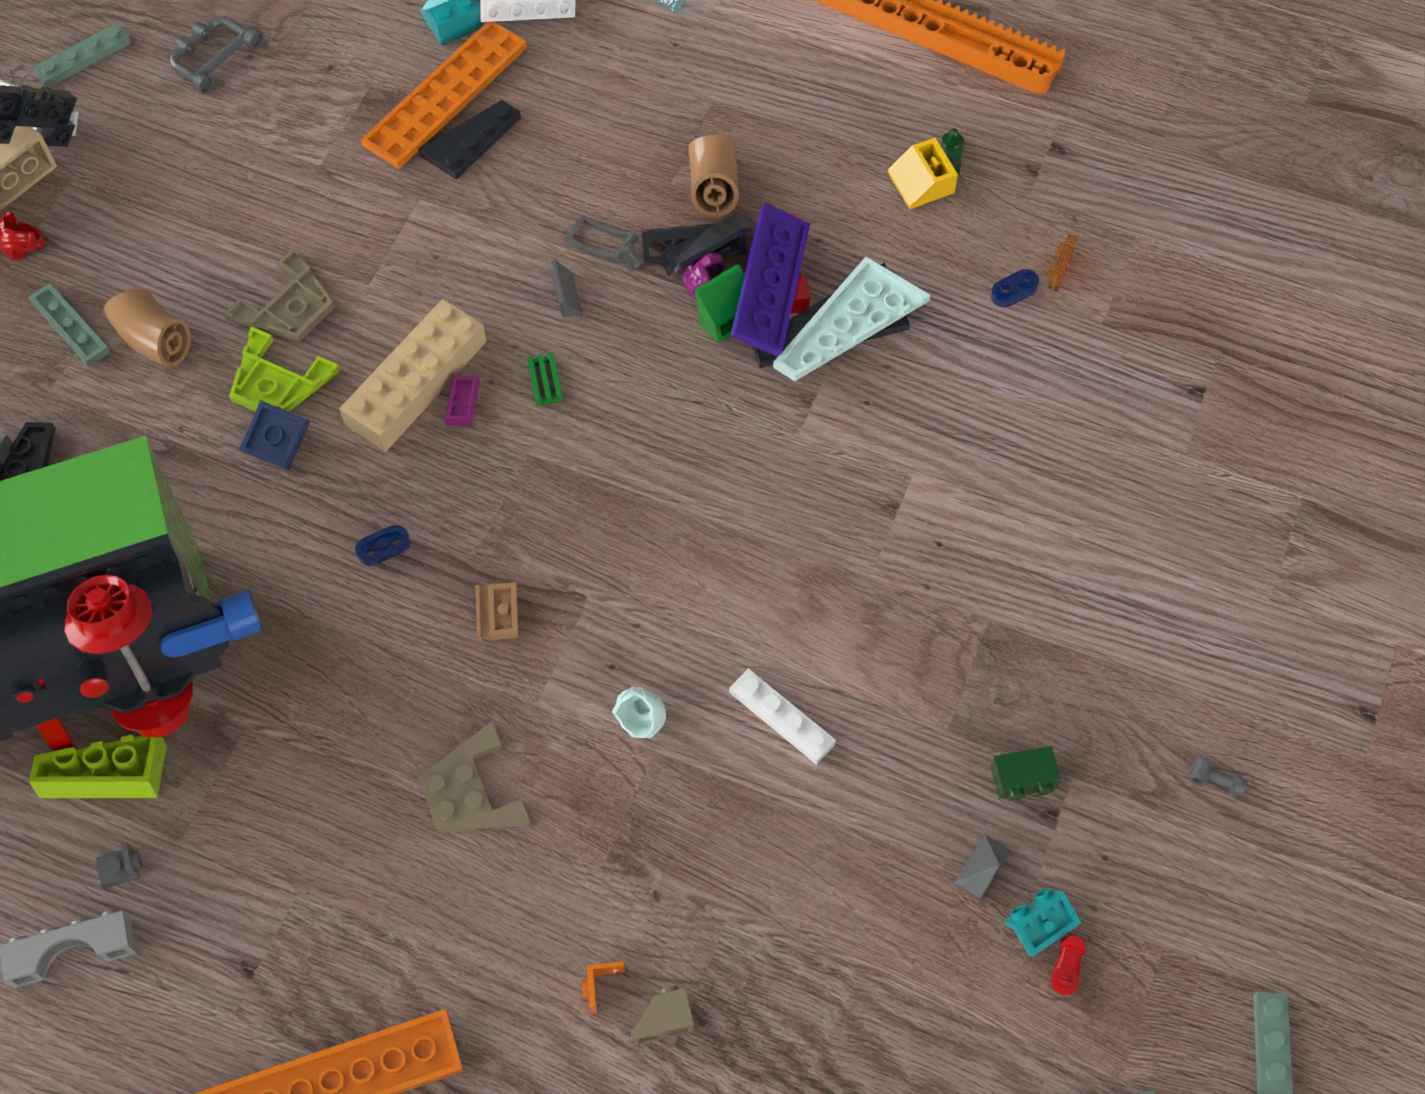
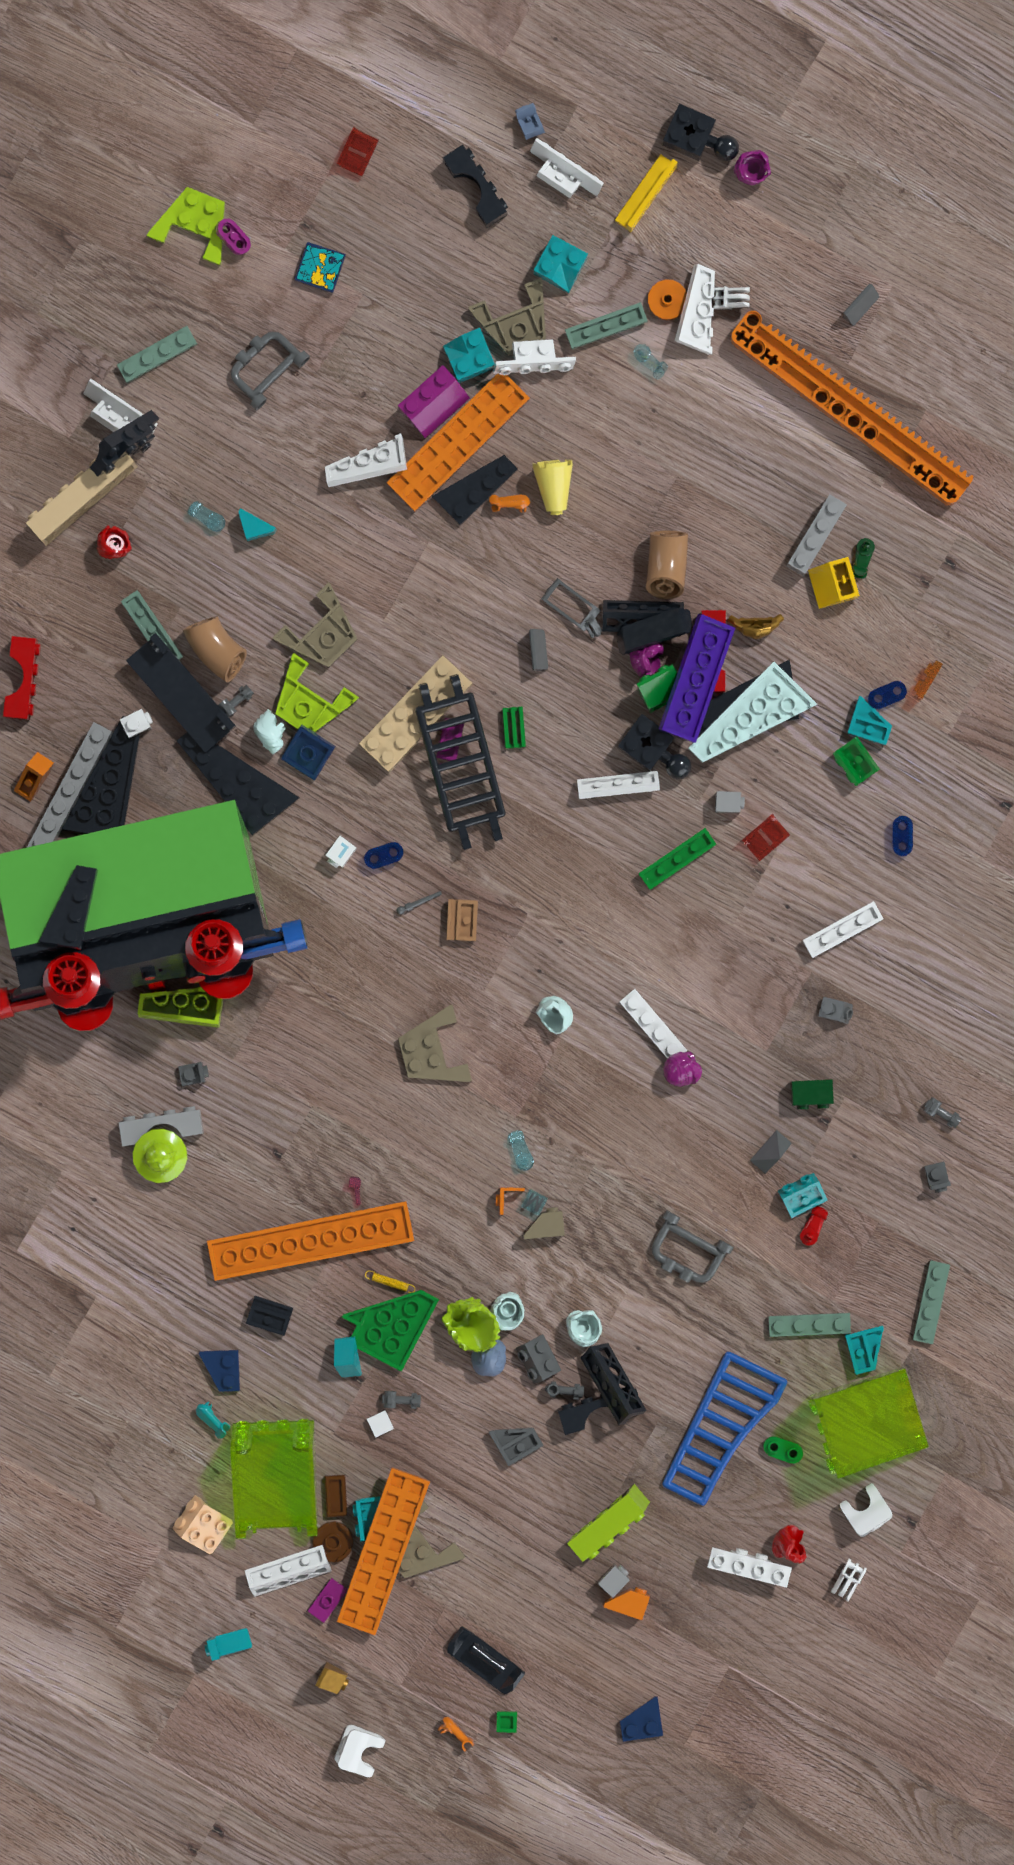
camera: 10 degrees right, 25 degrees up
(44, 426) = (136, 723): none -> white bracket
(61, 988) = (160, 1155): none -> lime helmet
(102, 382) = (180, 693): none -> black bracket
(147, 205) = (208, 517): none -> clear light blue piece
(168, 400) = (229, 706): none -> dark grey bar
(202, 202) = (255, 527): none -> teal slope
(205, 495) = (255, 793): none -> black wing
(218, 414) = (268, 732): none -> light aqua hair
(323, 547) = (340, 852): none -> white brick
(335, 125) = (381, 460): none -> white wing
(368, 994) = (355, 1182): none -> clear pink hand
(409, 56) = (433, 401): none -> magenta slope
(423, 606) = (409, 906): none -> dark grey piece
(443, 424) = (484, 755): none -> black bar
(518, 142) = (516, 501): none -> orange piece
(564, 112) = (554, 483): none -> light yellow cone
(616, 920) = (522, 1154): none -> clear light blue piece
(641, 986) = (534, 1202): none -> clear light blue tile
(699, 422) = (618, 784): none -> white plate
(722, 369) = (677, 765): none -> black brick
(780, 501) = (677, 859): none -> green plate
(832, 764) = (681, 1069): none -> magenta hair
(837, 234) = (756, 627): none -> pearl gold piece
(837, 425) = (729, 802): none -> light grey brick
(862, 1053) = (685, 1273): none -> dark grey bar
(884, 142) = (816, 535): none -> light grey arch
(898, 450) = (773, 830): none -> clear red piece
(993, 358) = (855, 761): none -> green bracket
(1000, 319) = (869, 724): none -> teal wing
(1020, 558) = (842, 929): none -> white plate
(1034, 659) = (836, 1010): none -> dark grey bracket
(1075, 439) = (902, 836): none -> clear blue plate
(1233, 868) = (937, 1177): none -> dark grey bracket

